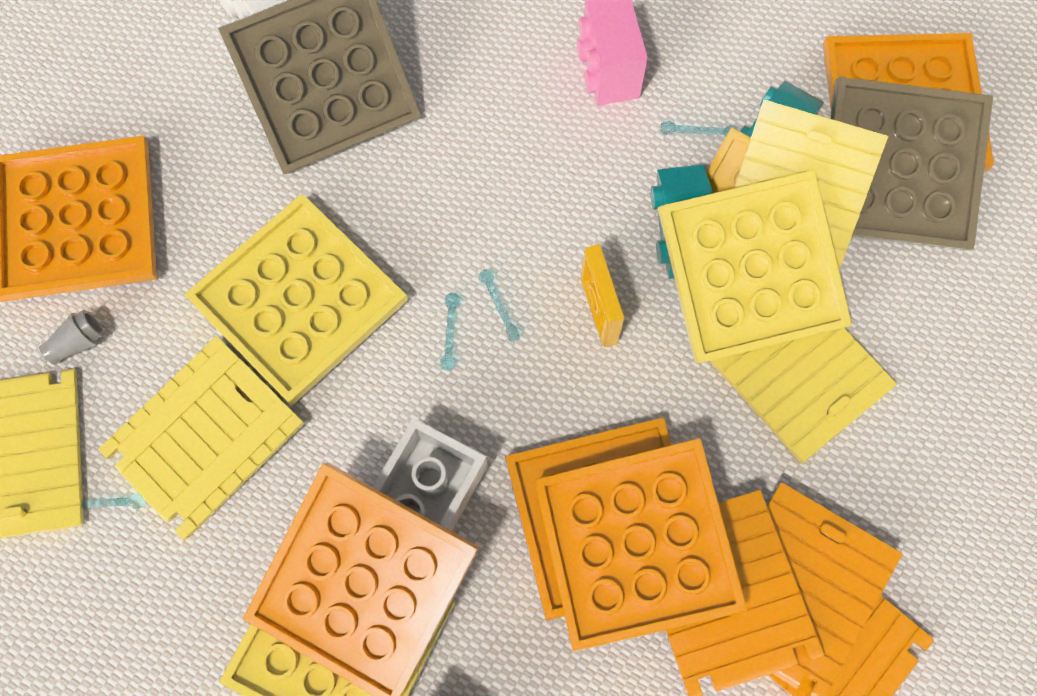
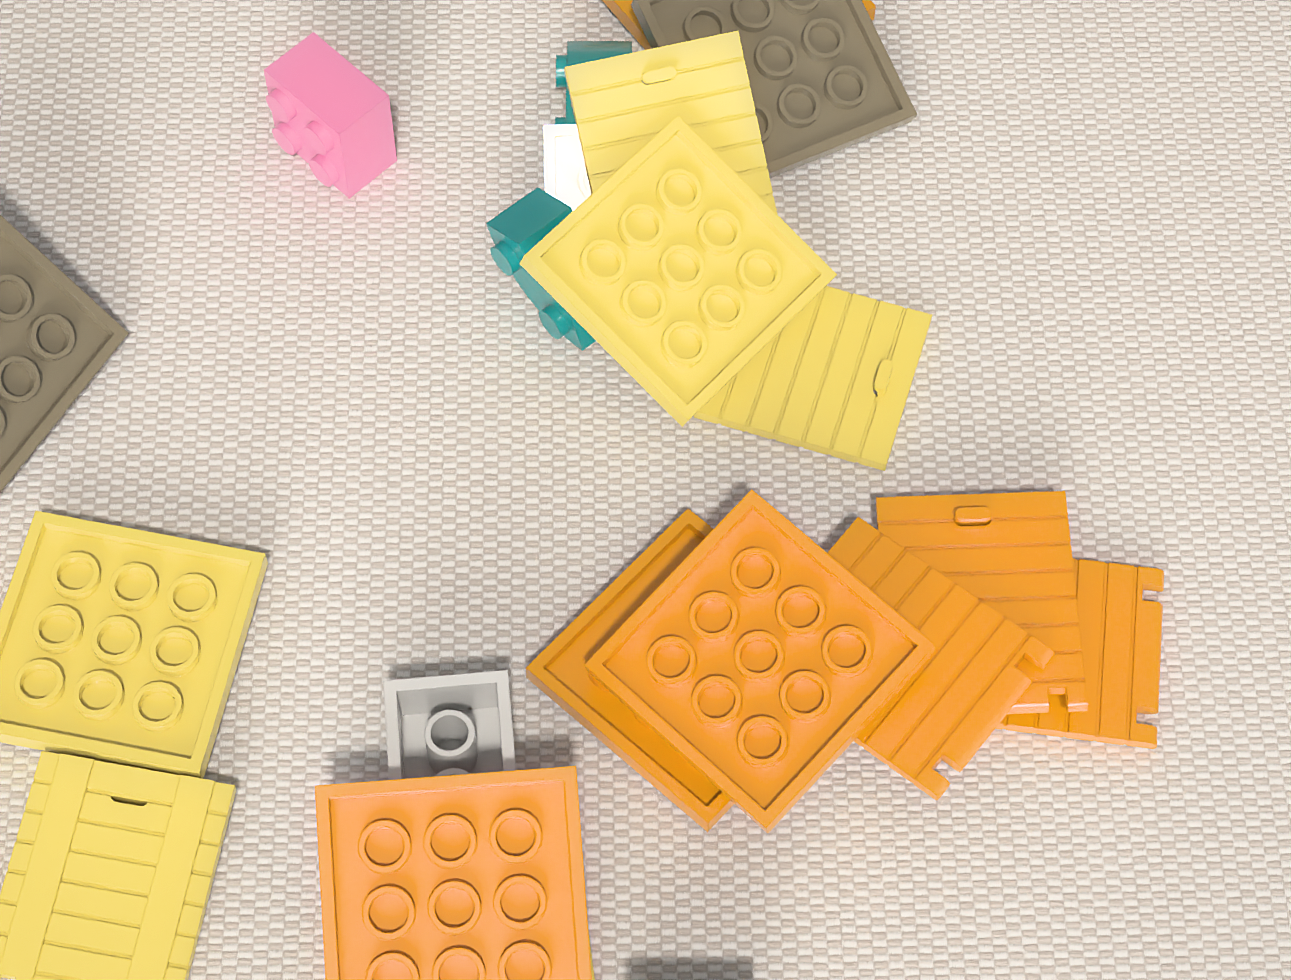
camera: 35 degrees left, 10 degrees down
(452, 302) = (327, 535): clear light blue hinge -> none
(486, 277) = (430, 523): clear light blue hinge -> none
(601, 296) = (518, 409): yellow tile -> none
(669, 128) = (461, 174): clear light blue hinge -> none

